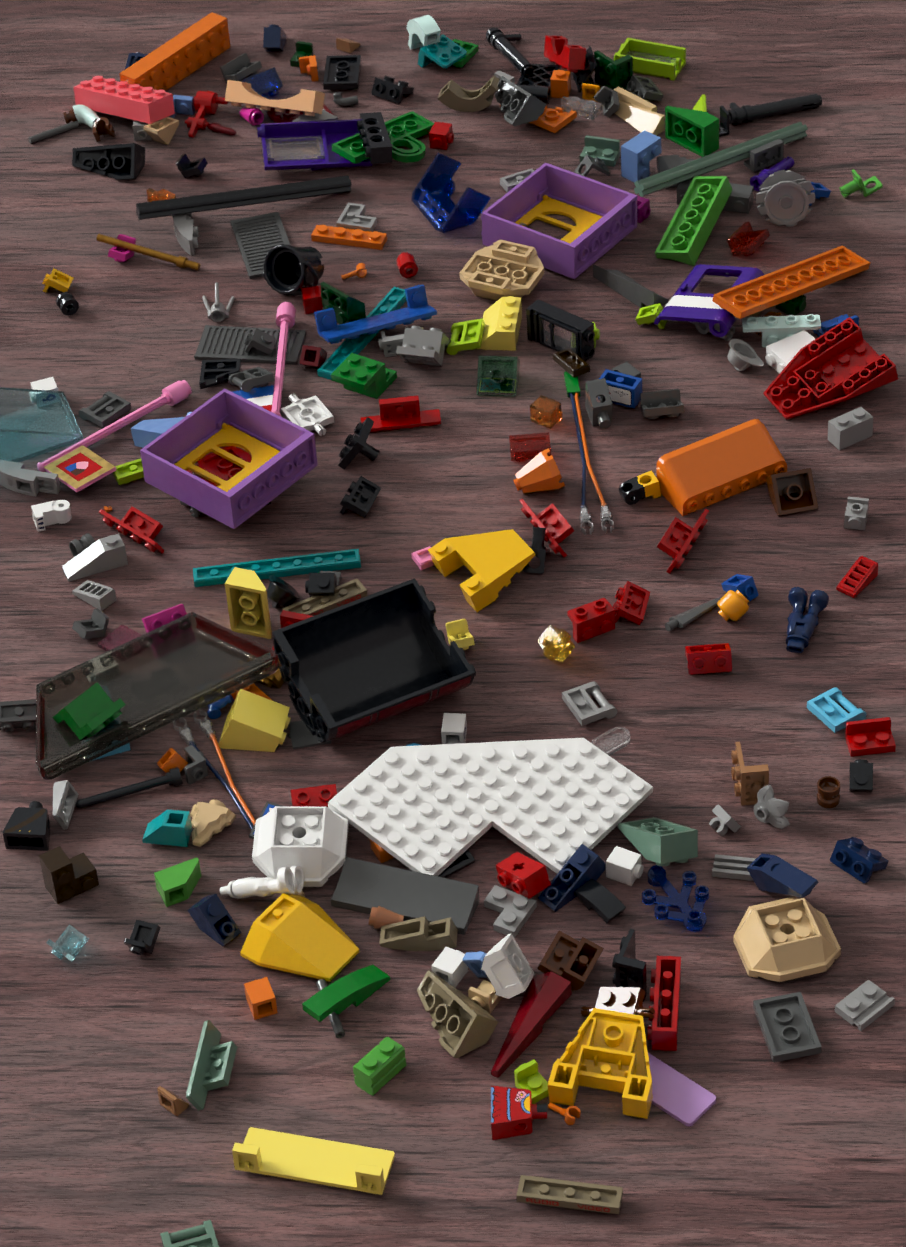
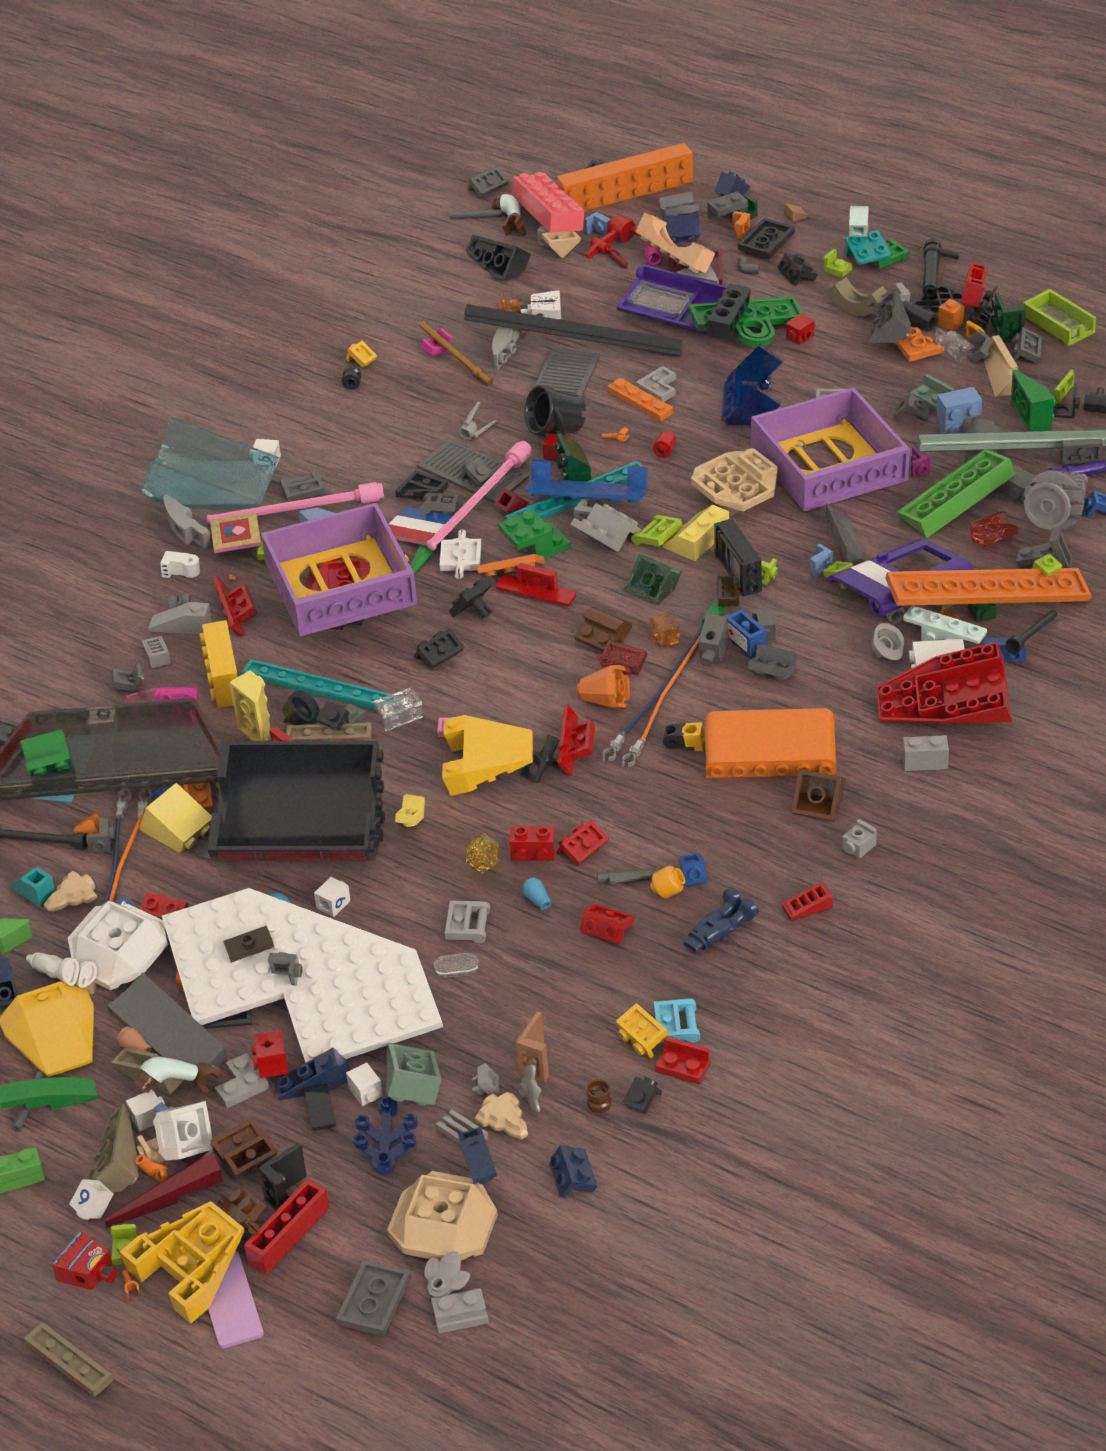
camera: 30 degrees right, 0 degrees up
(42, 101) = (487, 181): none -> dark grey bracket
(177, 578) = (219, 661): none -> yellow brick
(191, 168) = (555, 282): black bracket -> none
(195, 184) = (544, 305): none -> white torso
(285, 54) = (726, 204): none -> dark grey bracket
(362, 408) = (509, 565): none -> orange wing
(371, 557) = (399, 708): none -> clear bracket
(423, 77) = (836, 266): none -> lime bracket
(433, 791) = (248, 944): none -> dark brown plate
(447, 923) = (162, 1068): none -> piece
(472, 1058) = (91, 1199): none -> white brick
(484, 793) = (286, 964): none -> dark grey bracket
(491, 431) = (600, 627): none -> reddish brown brick
(501, 1012) = (151, 1168): none -> orange arm
(627, 310) = (821, 560): none -> medium blue bracket
(629, 658) = (536, 893): none -> dark azure cone
(678, 538) = (678, 796): red bracket -> none
(764, 840) = (503, 1114): none -> tan rock
(806, 242) = (1056, 547): none -> dark grey bracket
(819, 727) = (641, 1030): none -> yellow bracket
(821, 249) = (1047, 564): none -> lime bracket
(832, 978) = (446, 1272): none -> light grey plate
(853, 313) = (1016, 643): none -> black piece

